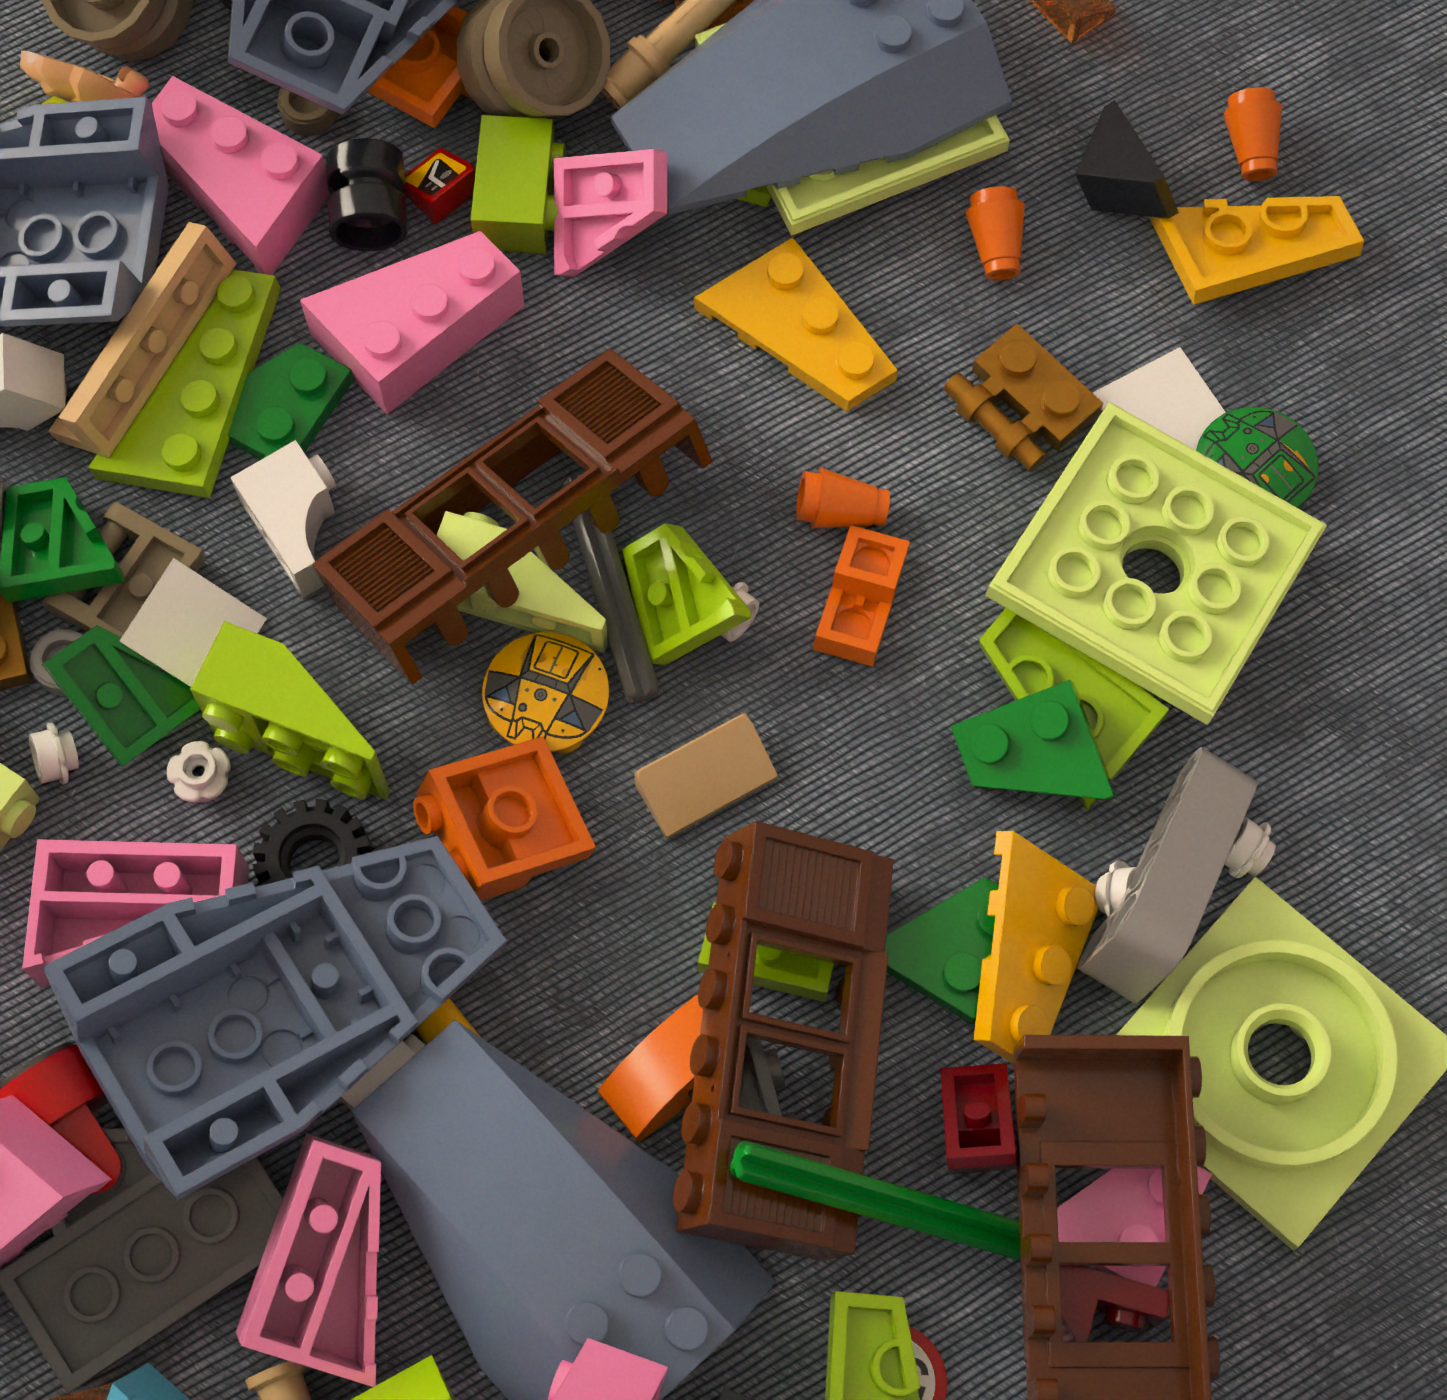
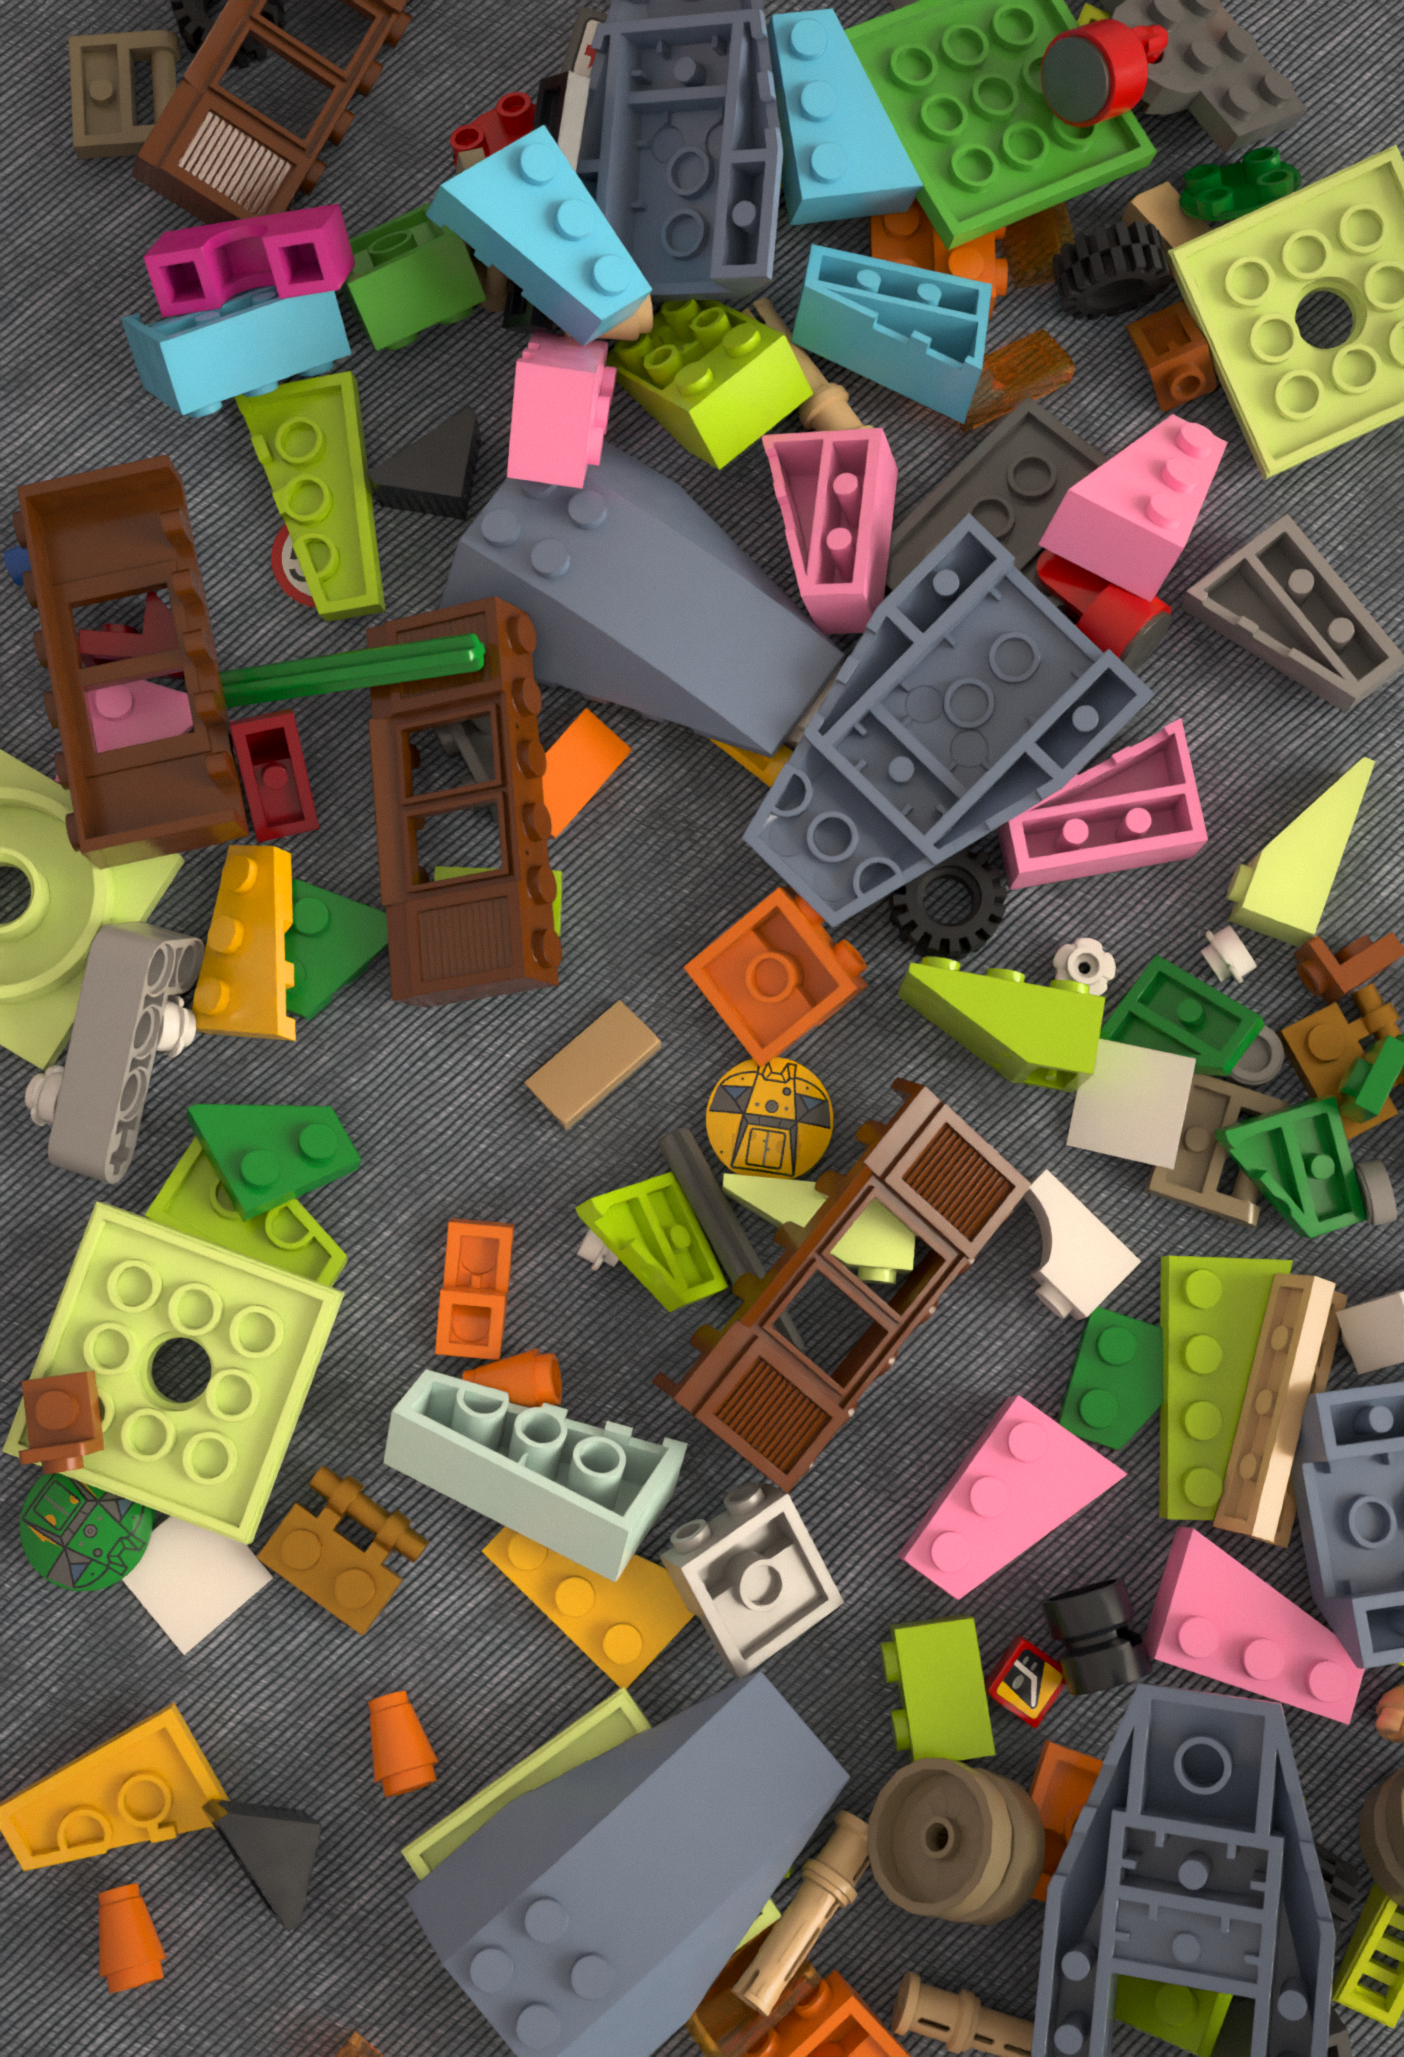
camera: 165 degrees right, 10 degrees up
(604, 204) = (833, 1671): bright pink wing -> none
(659, 297) = (751, 1576): none -> light grey plate
(832, 411) = (534, 1469): none -> light aqua wedge
(1267, 524) = (62, 1421): none -> dark orange bracket

